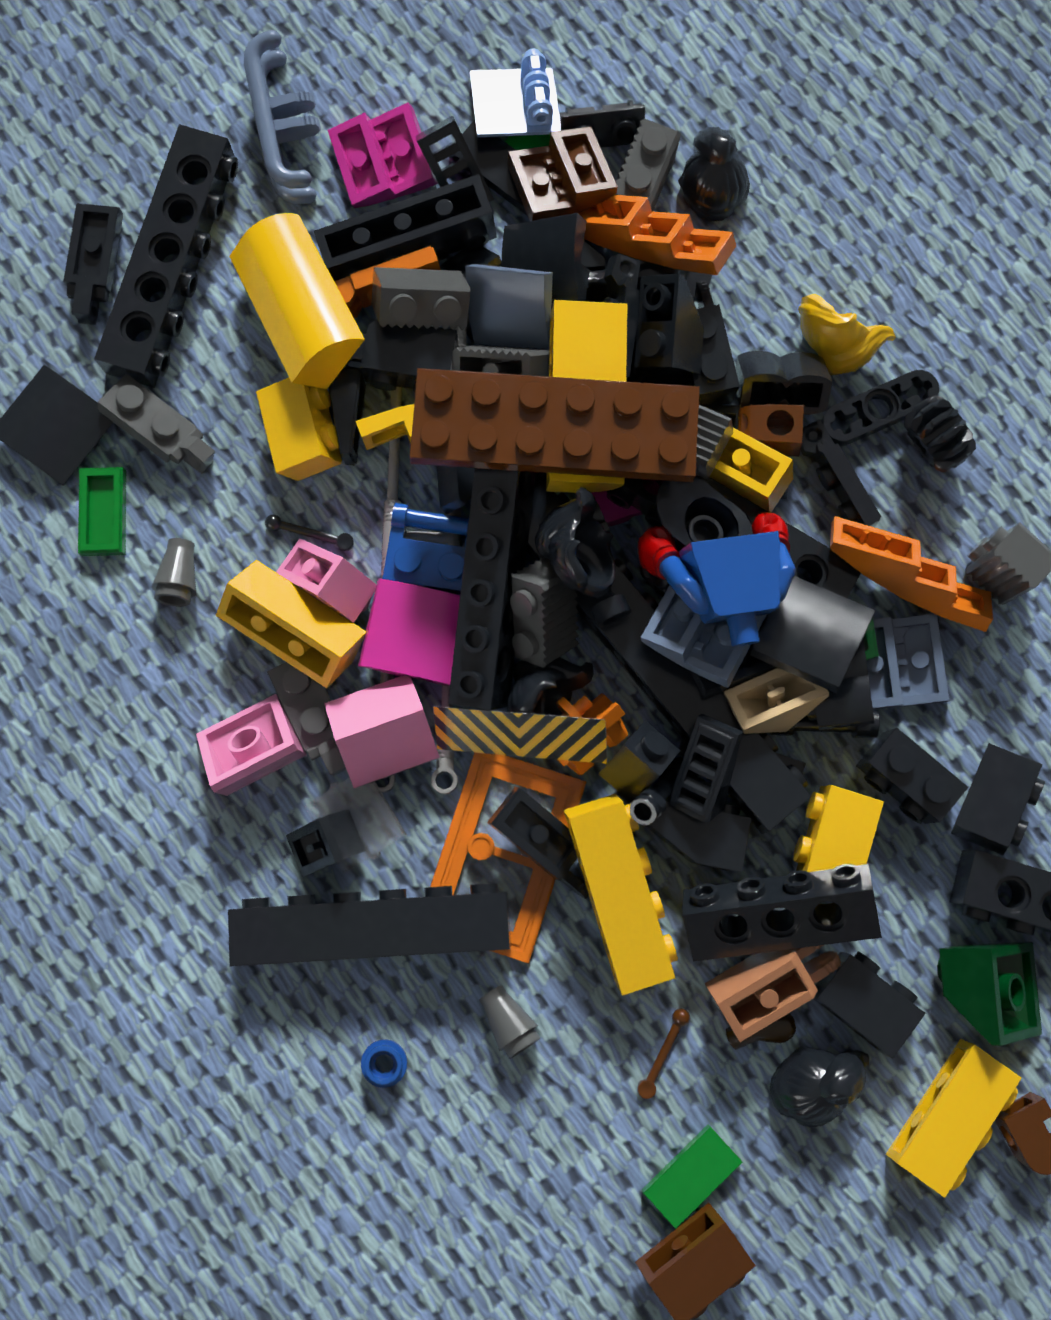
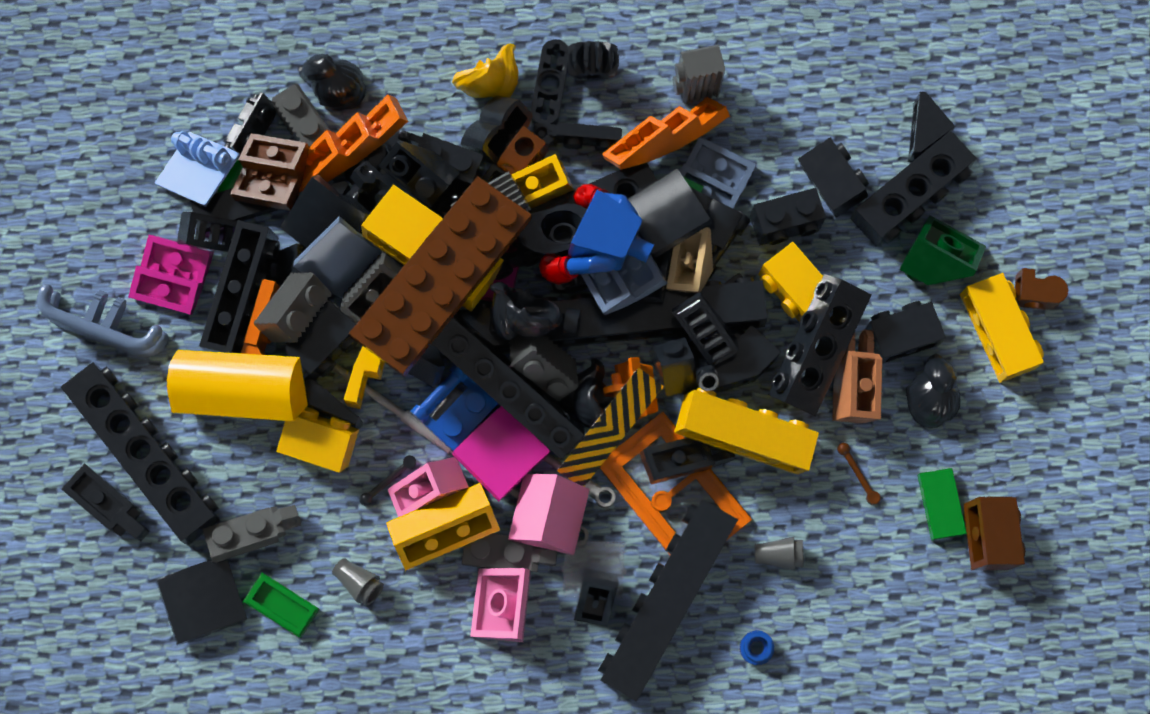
camera: 55 degrees left, 5 degrees down
(777, 1032) = (888, 397): dark brown arm -> none

